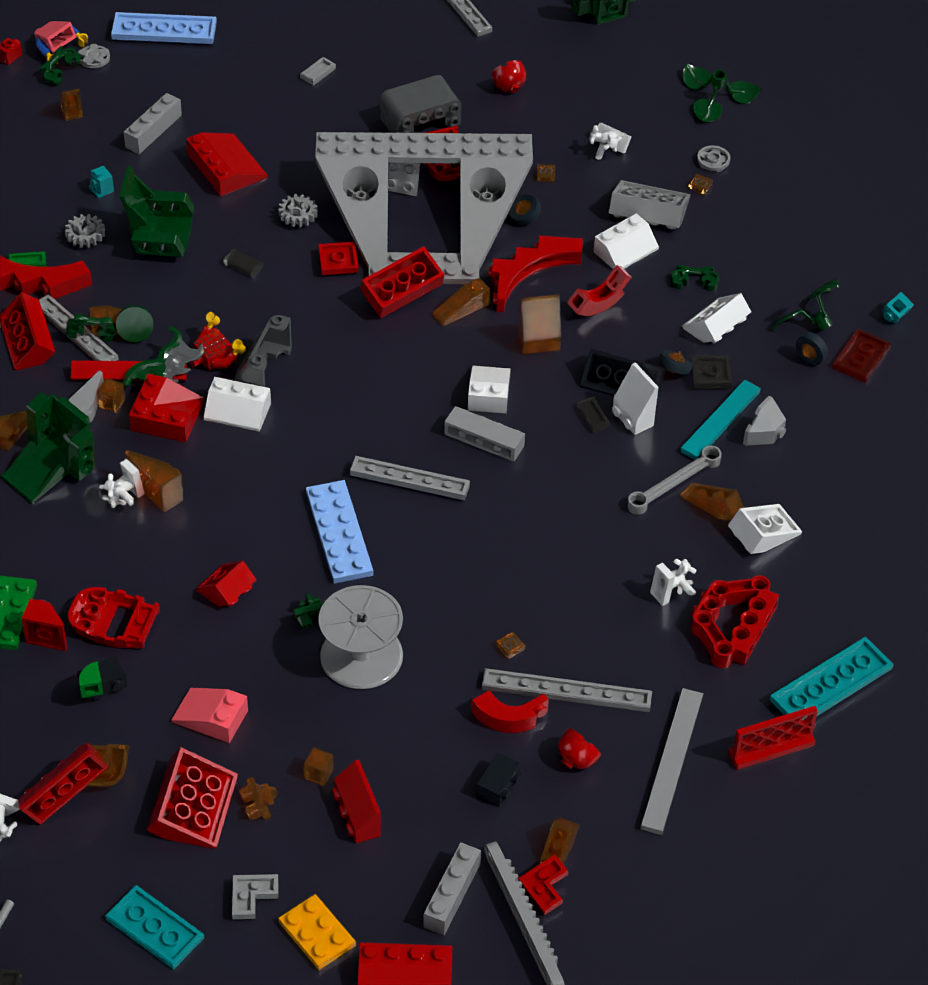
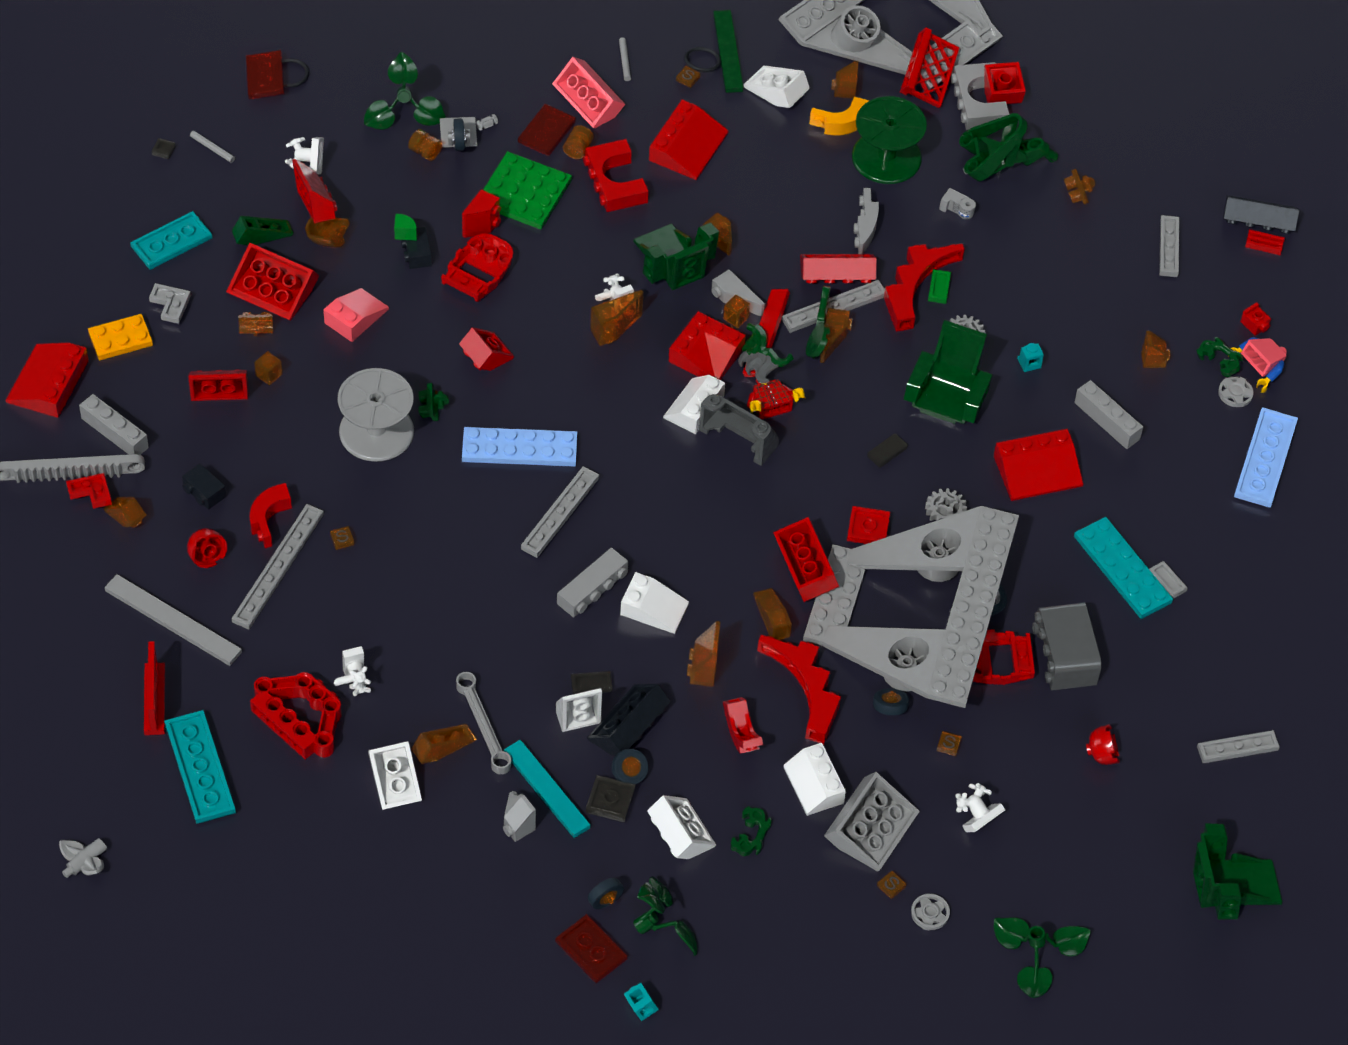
camera: 105 degrees right, 5 degrees up
(120, 834) = (260, 230): none -> dark green slope
(315, 98) = (1123, 567): none -> teal plate

